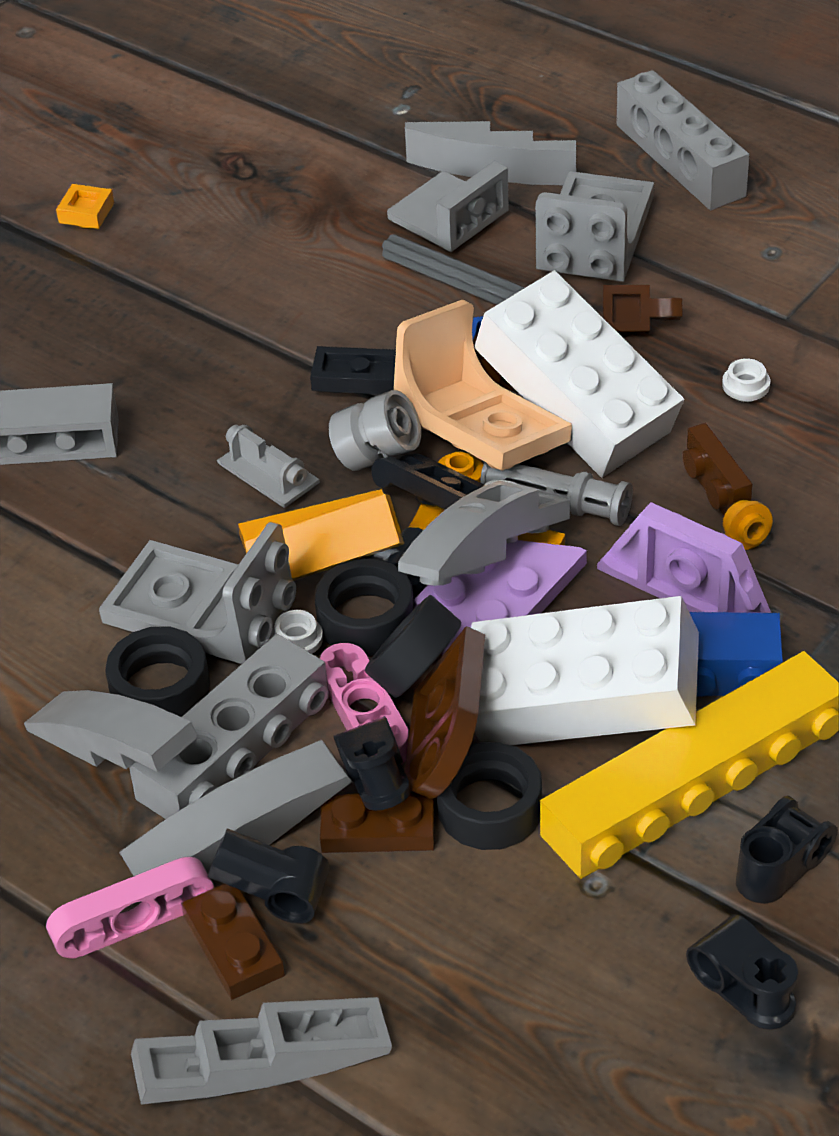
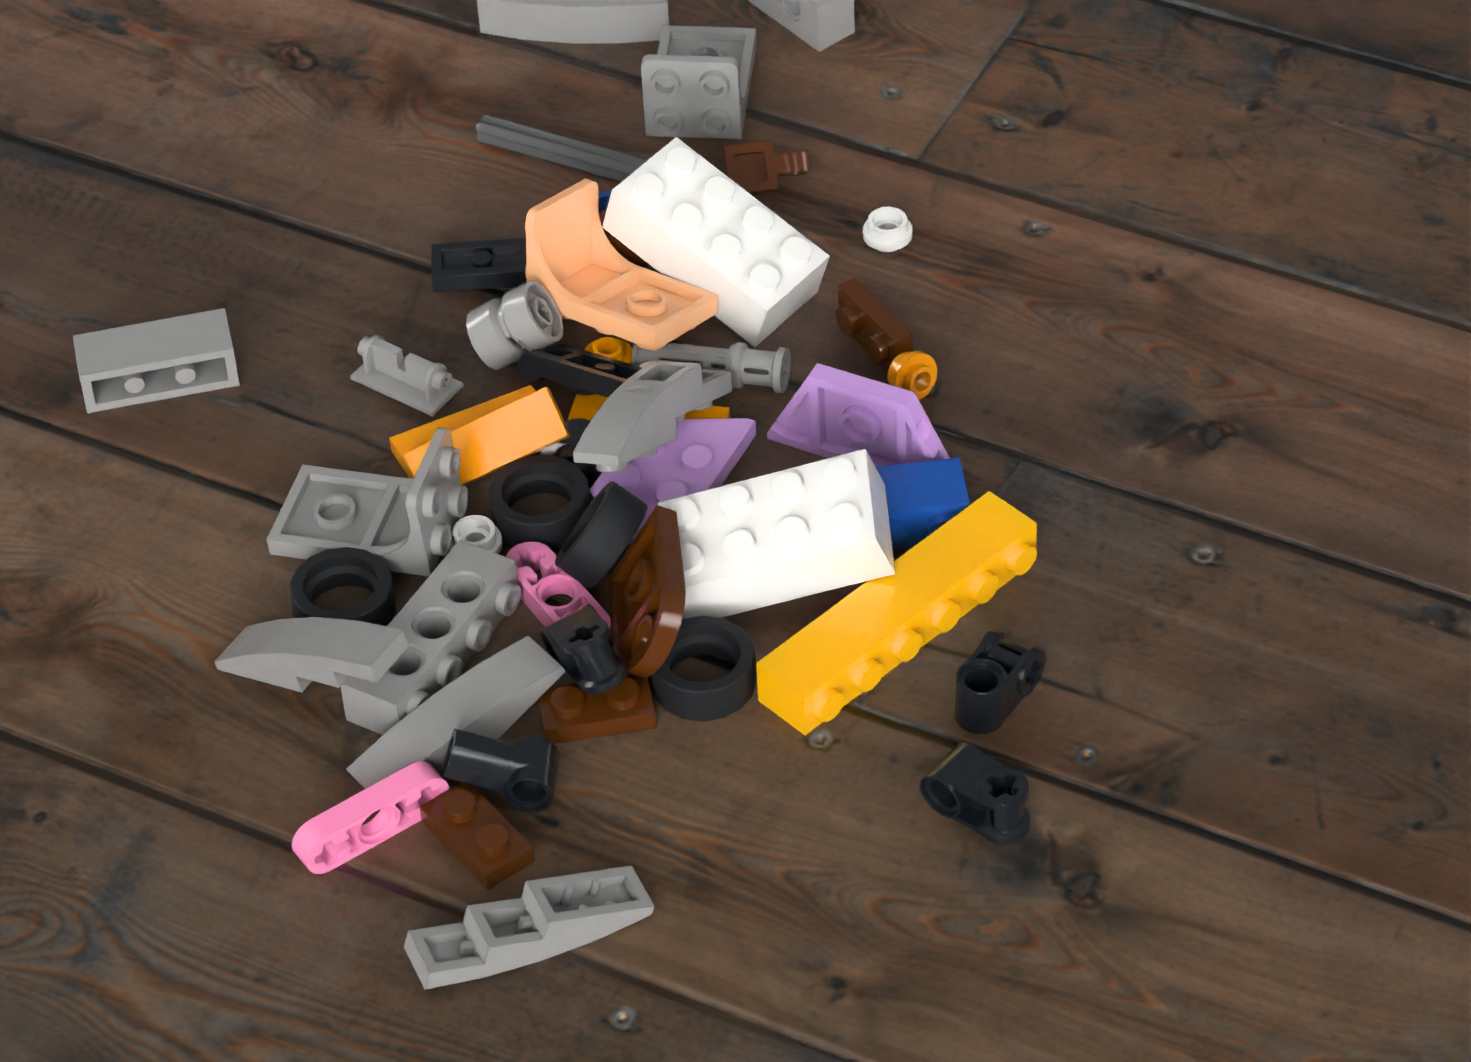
camera: 10 degrees left, 0 degrees up
(85, 206) = (138, 119): light orange plate -> none
(454, 209) = (543, 80): light grey bracket -> none

